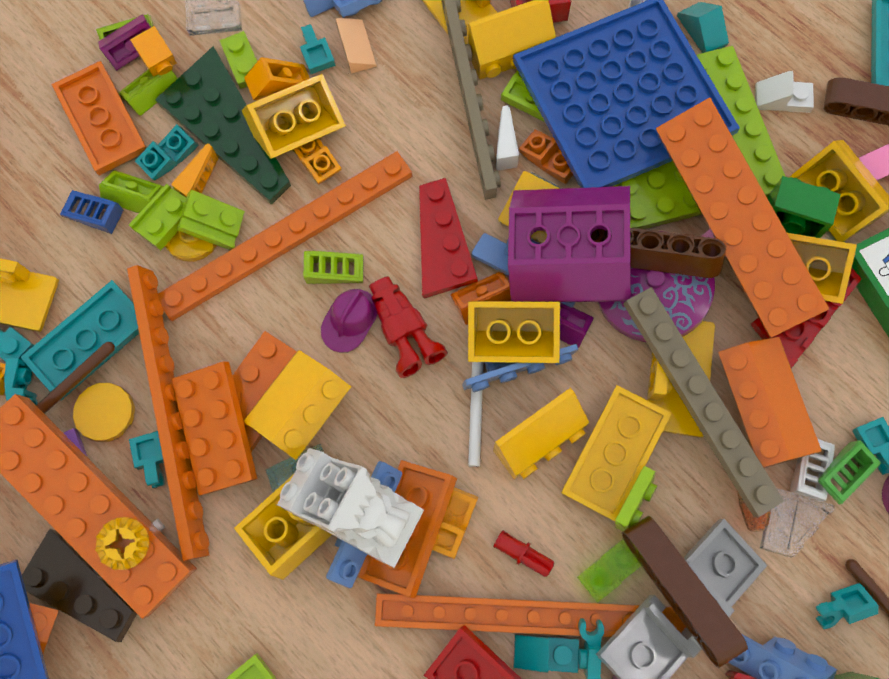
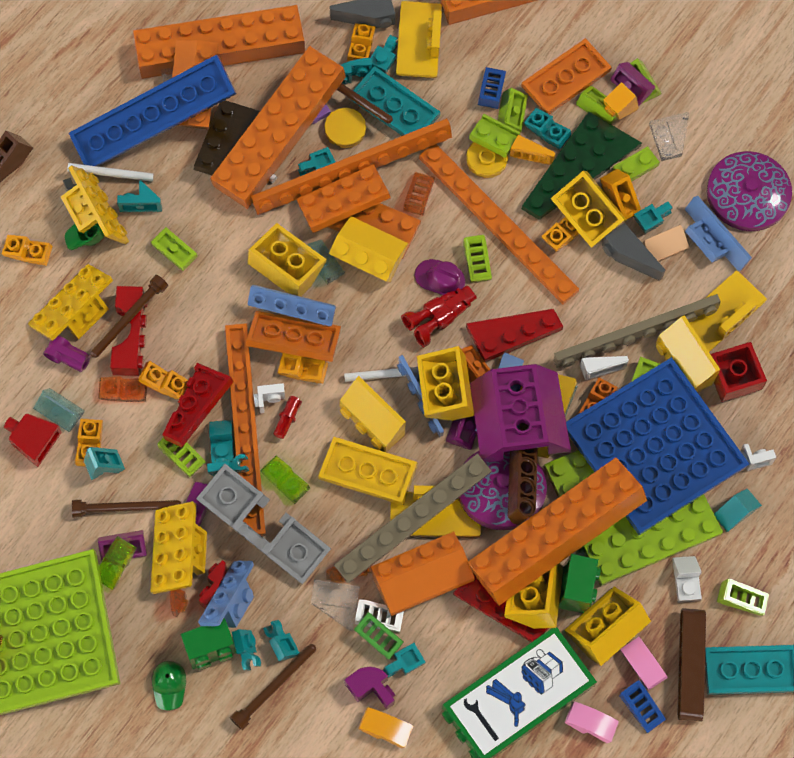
camera: 75 degrees right, 5 degrees down
(133, 553) = (251, 162): yellow gear -> none
(210, 220) = (497, 167): lime plate -> none
(242, 338) = (415, 207): none -> clear orange slope
(350, 505) = (299, 288): white brick -> none
(359, 81) = (630, 251): none -> dark grey slope
(487, 570) = (269, 393): none -> white bracket
(642, 490) = (335, 485): lime plate -> none
(685, 592) = (275, 510): reddish brown beam -> none
(810, 42) = (724, 593): none -> lime slope
(853, 661) = (245, 646): none -> teal plate

